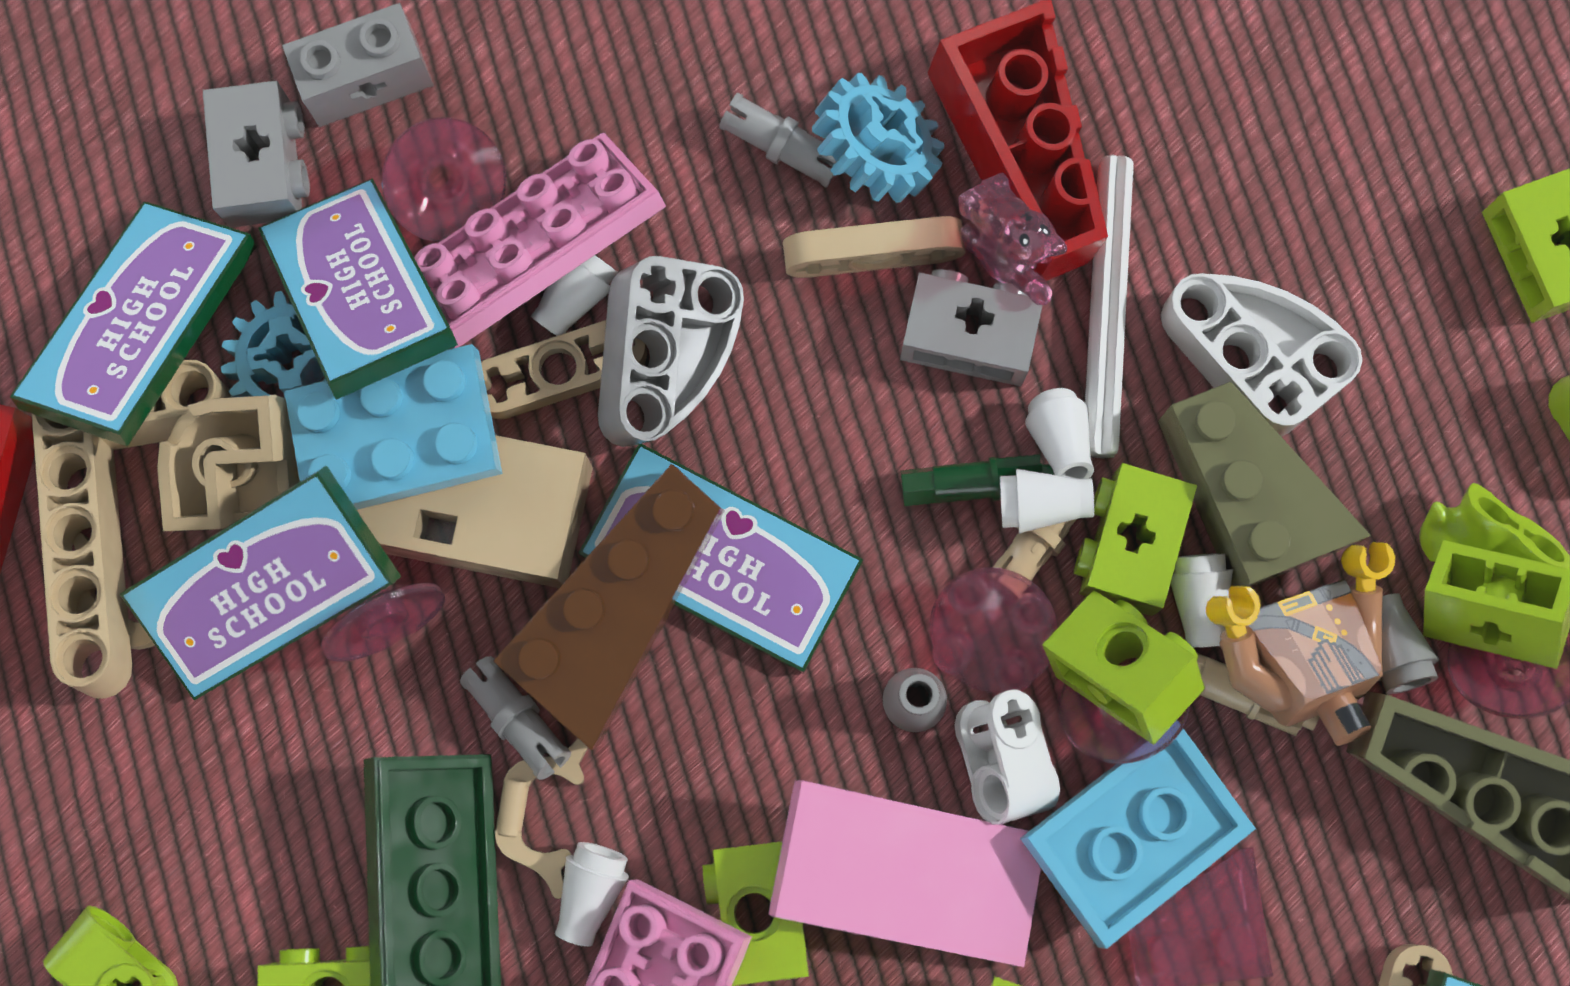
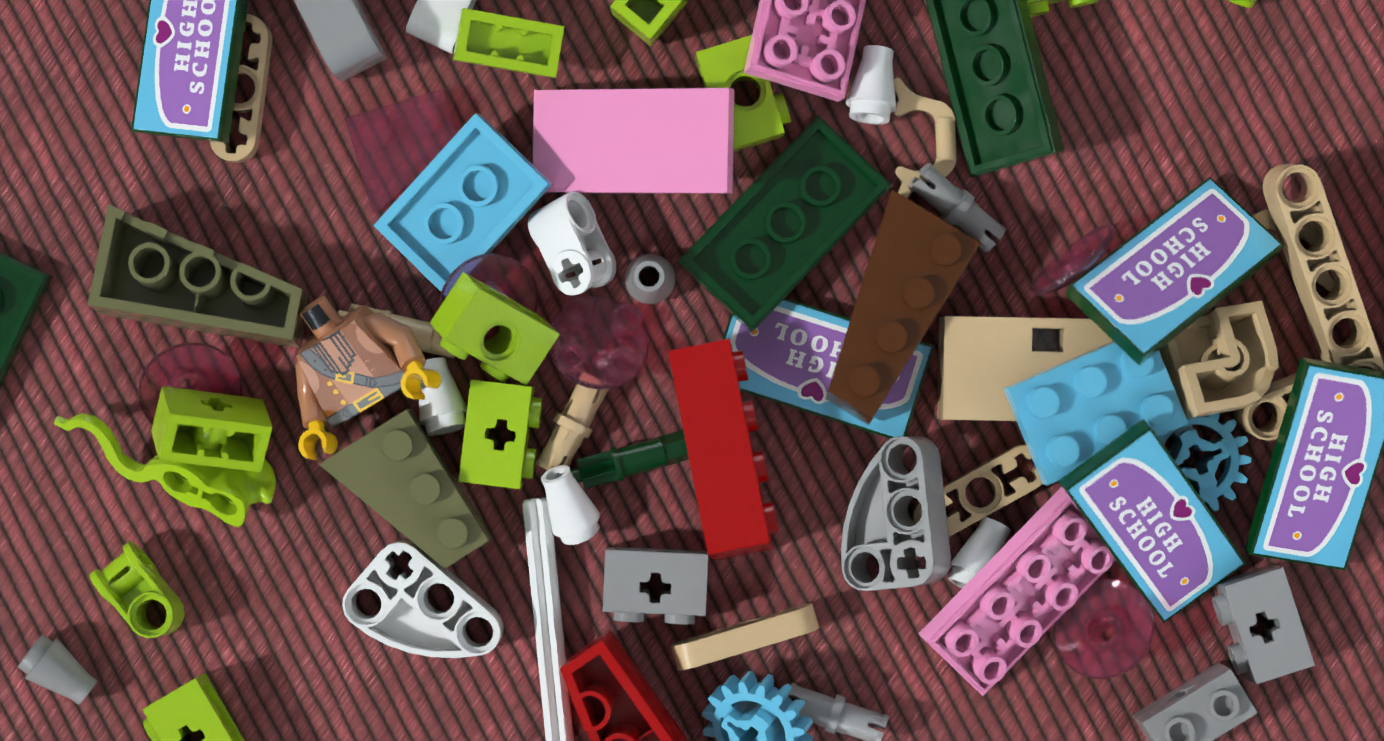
camera: 170 degrees right, 10 degrees up
(733, 737) = (784, 224): none -> dark green tile
(864, 464) = (721, 449): none -> red wedge
(1009, 236) = (639, 654): clear pink animal -> none
(1042, 500) = (577, 448): white cone -> none
(1405, 652) = (277, 384): light grey cone -> none

